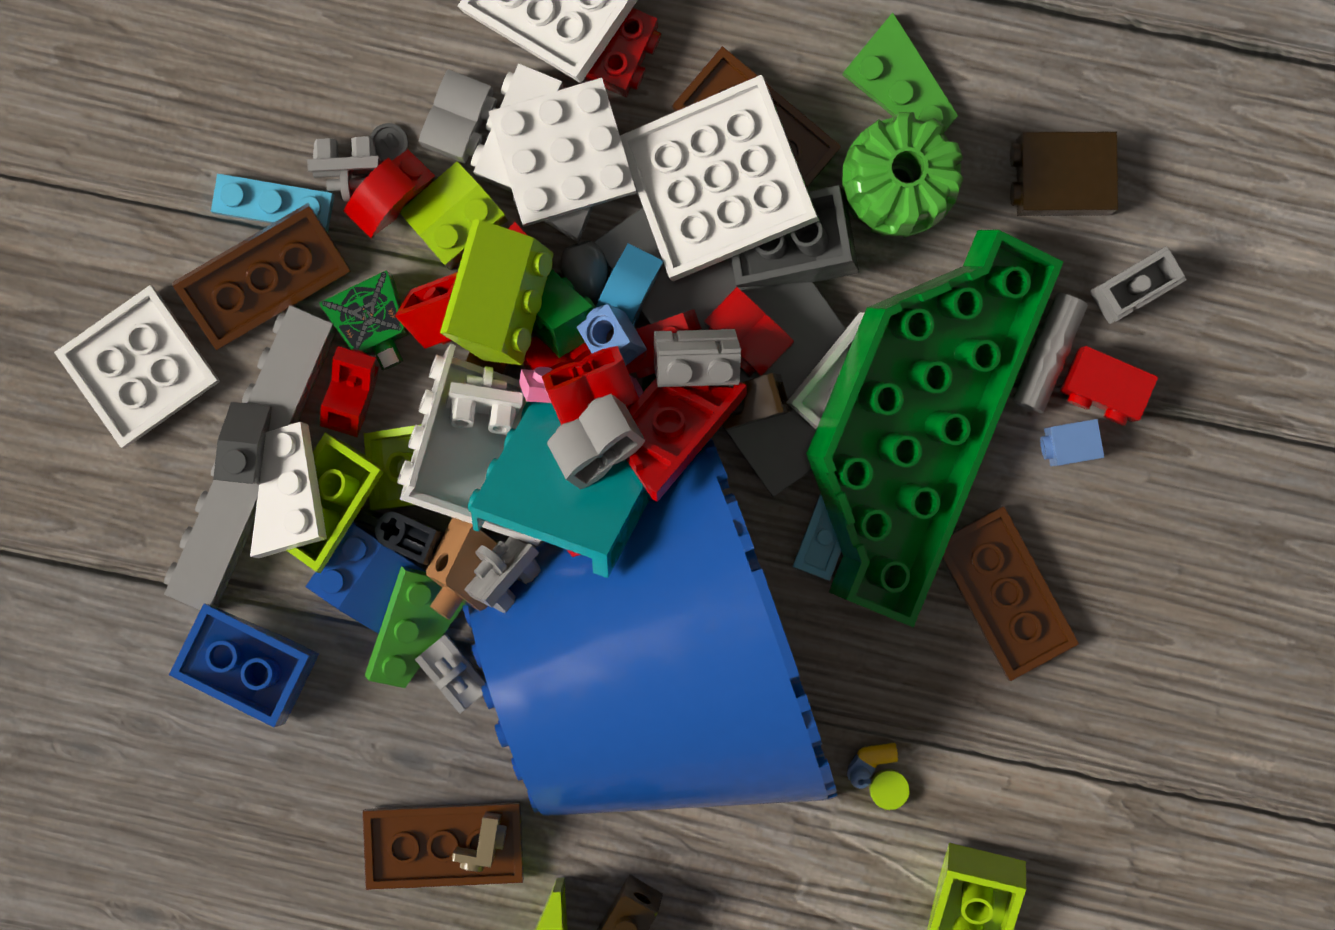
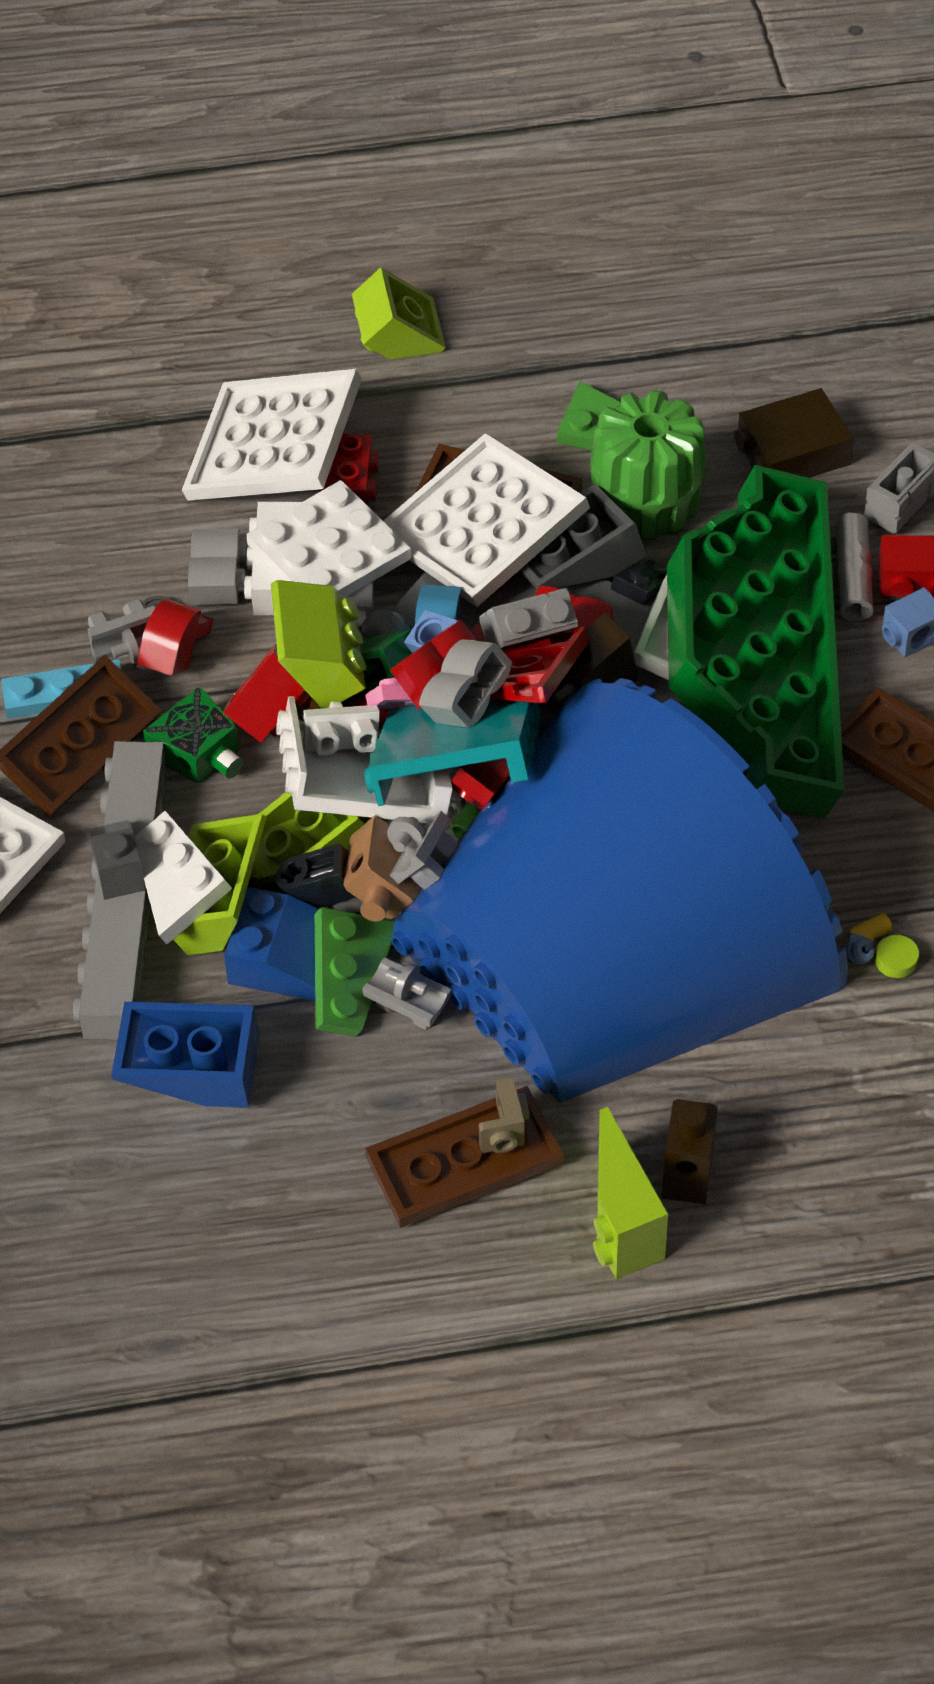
camera: 25 degrees left, 35 degrees down
(349, 391) = (199, 784): red brick -> none
(446, 212) = (238, 639): lime slope -> none
(843, 298) = (639, 582): none -> black plate

